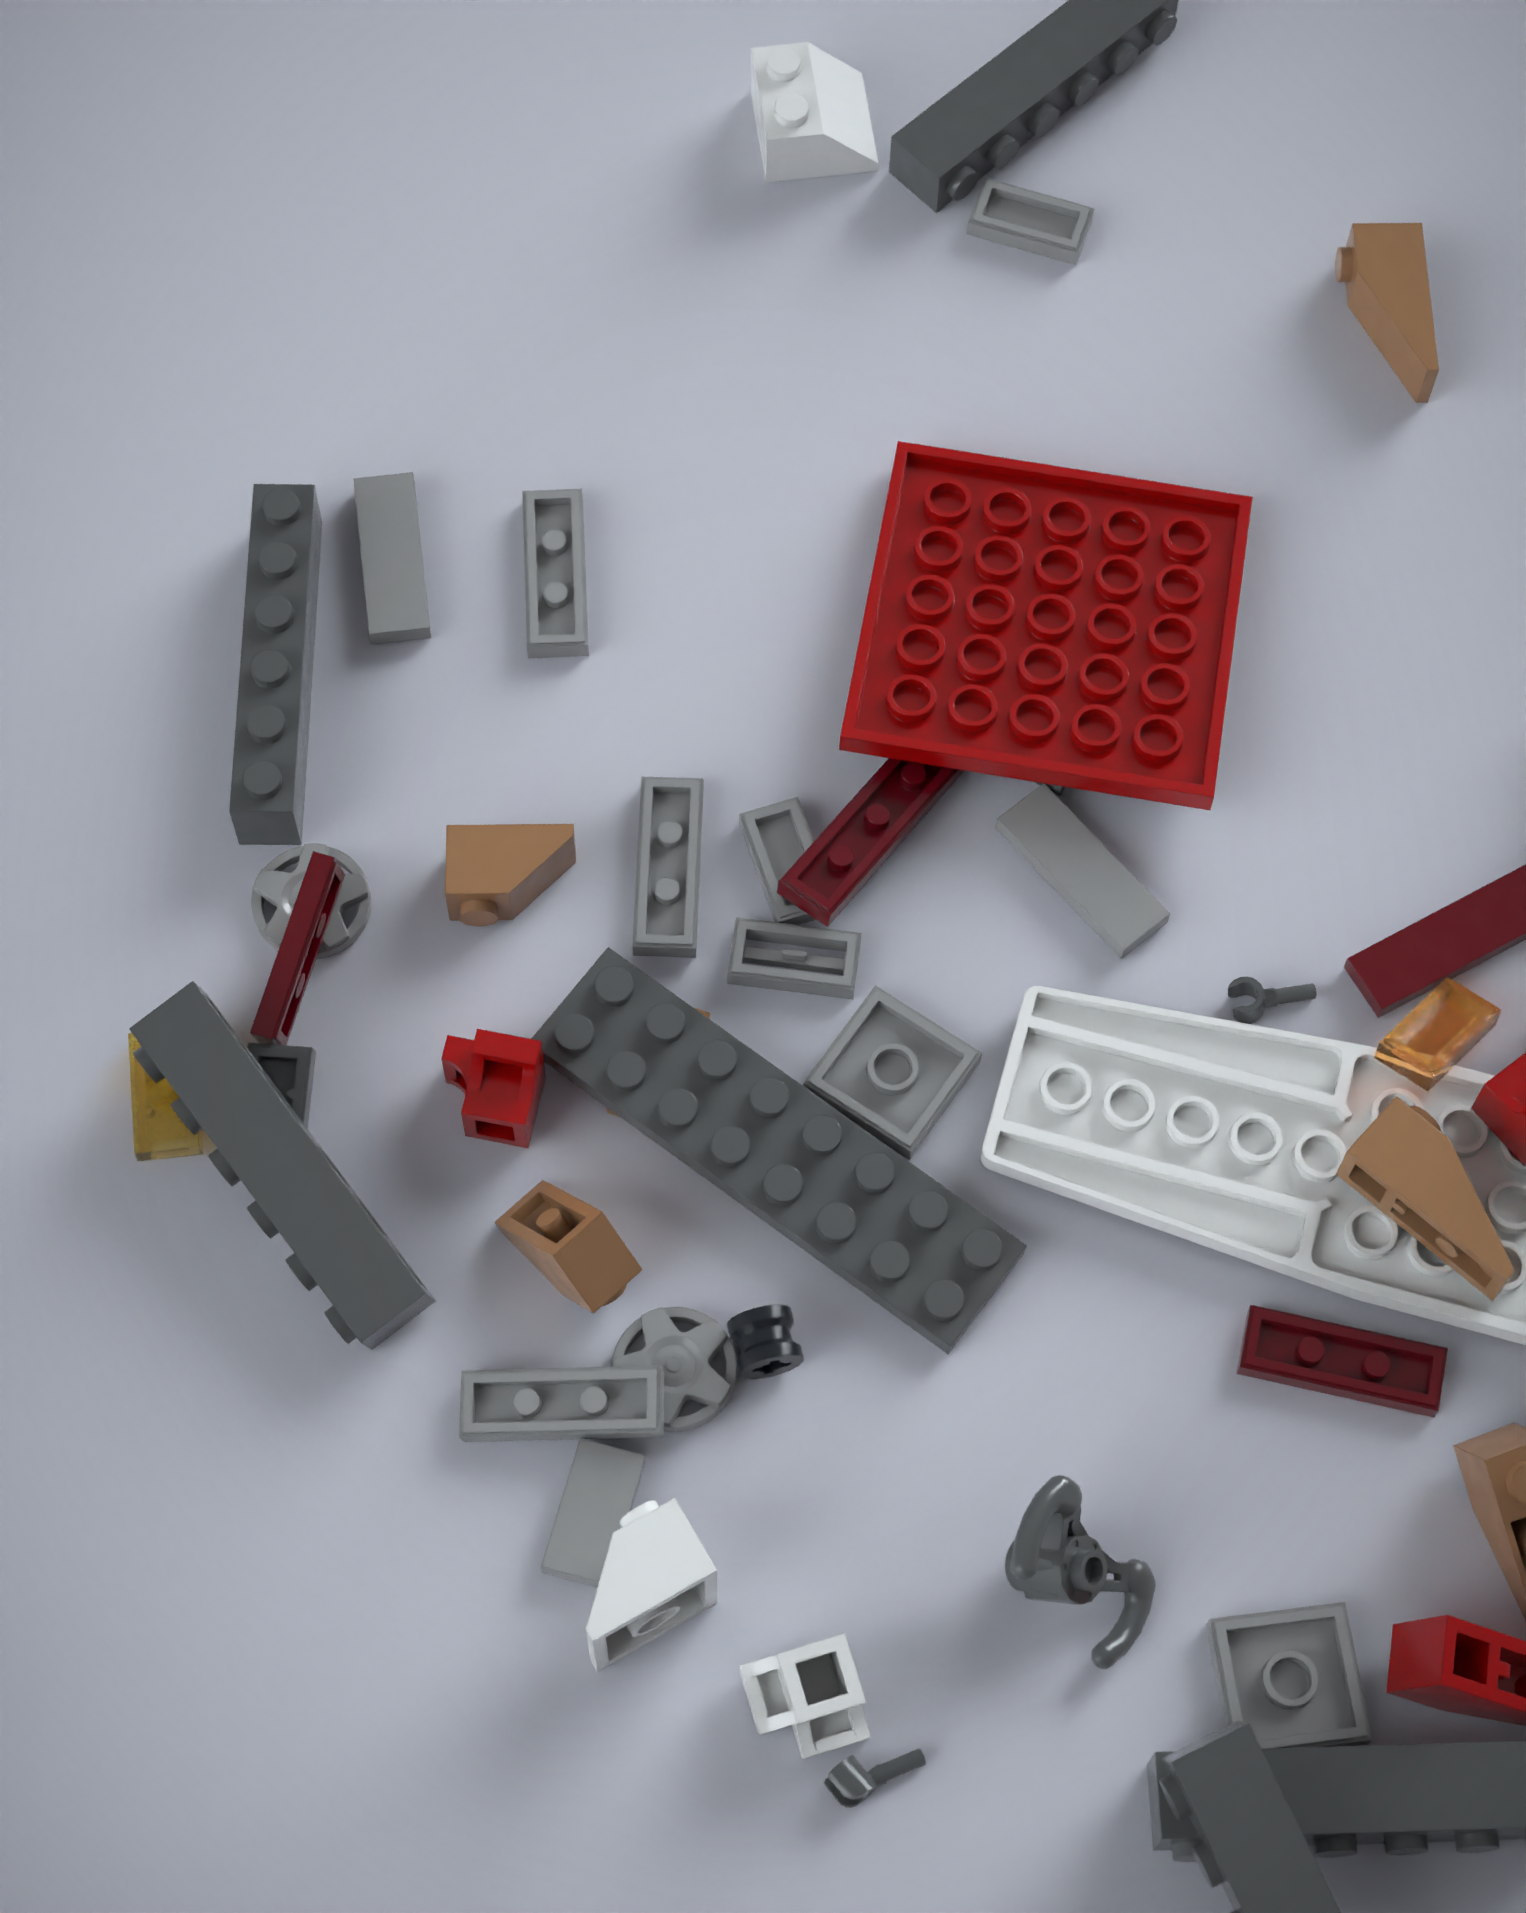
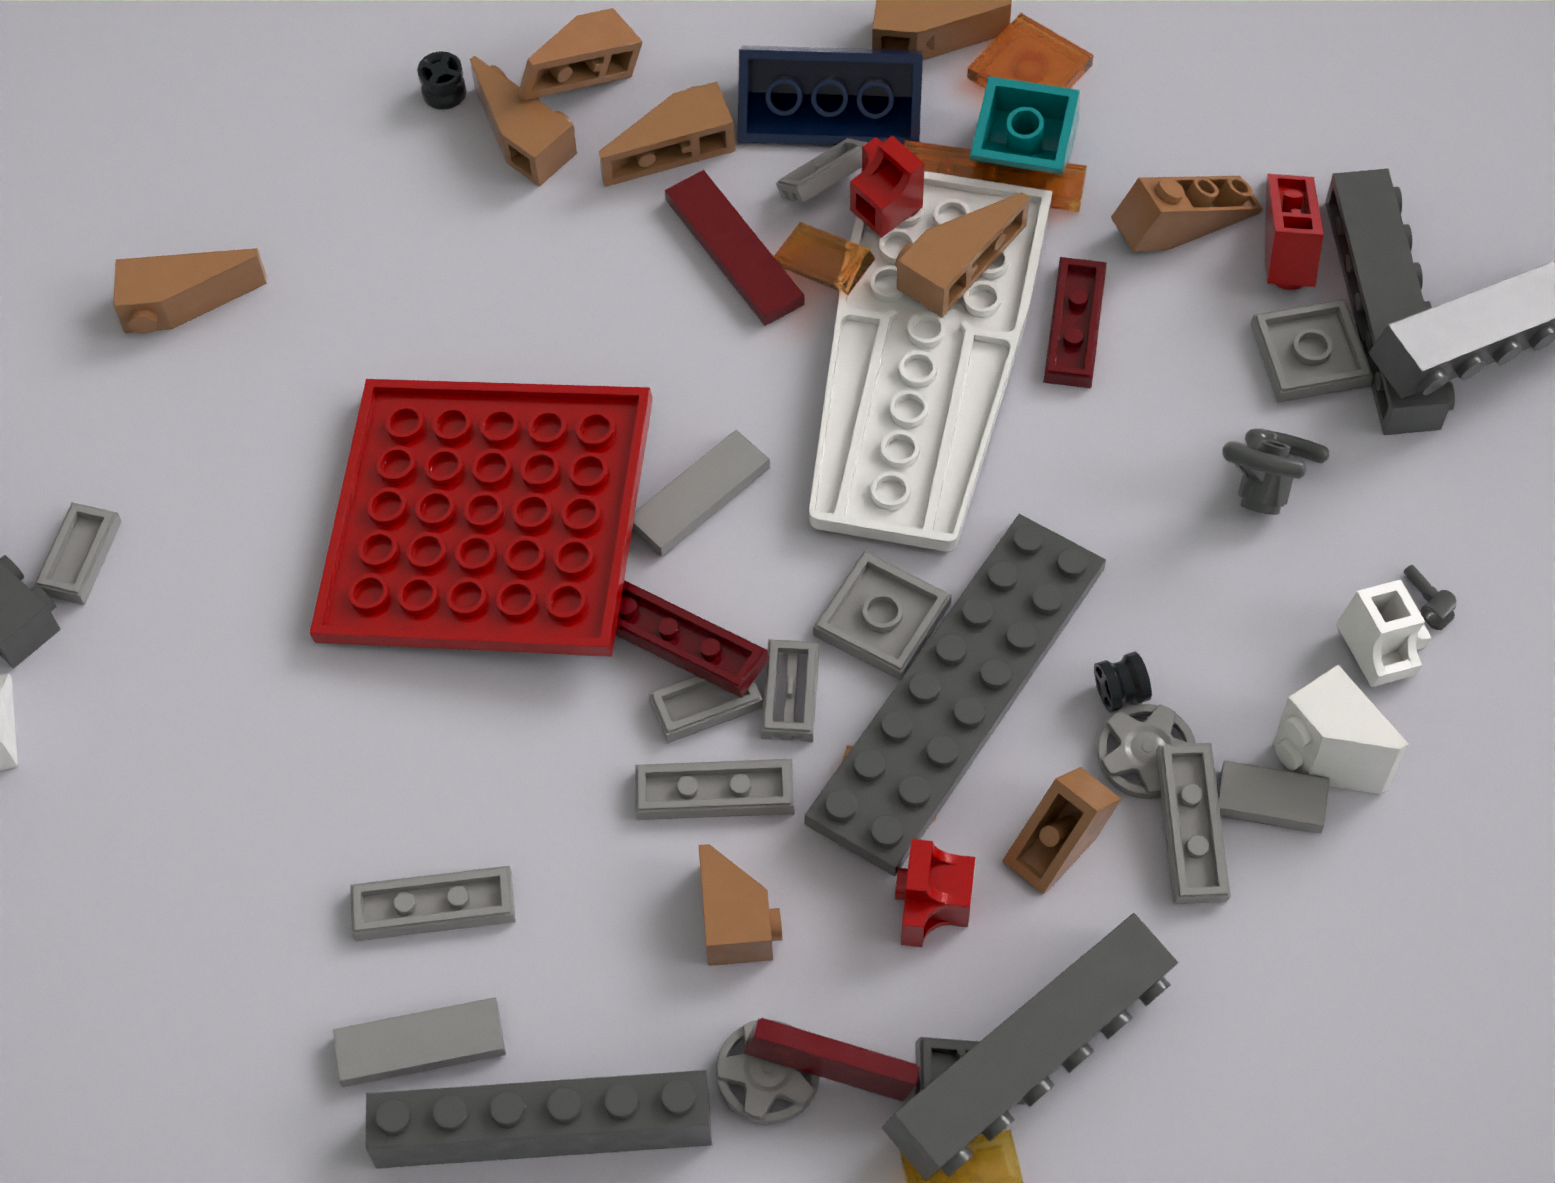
camera: 90 degrees left, 5 degrees down
(1265, 997) = (797, 369): dark grey hand -> none

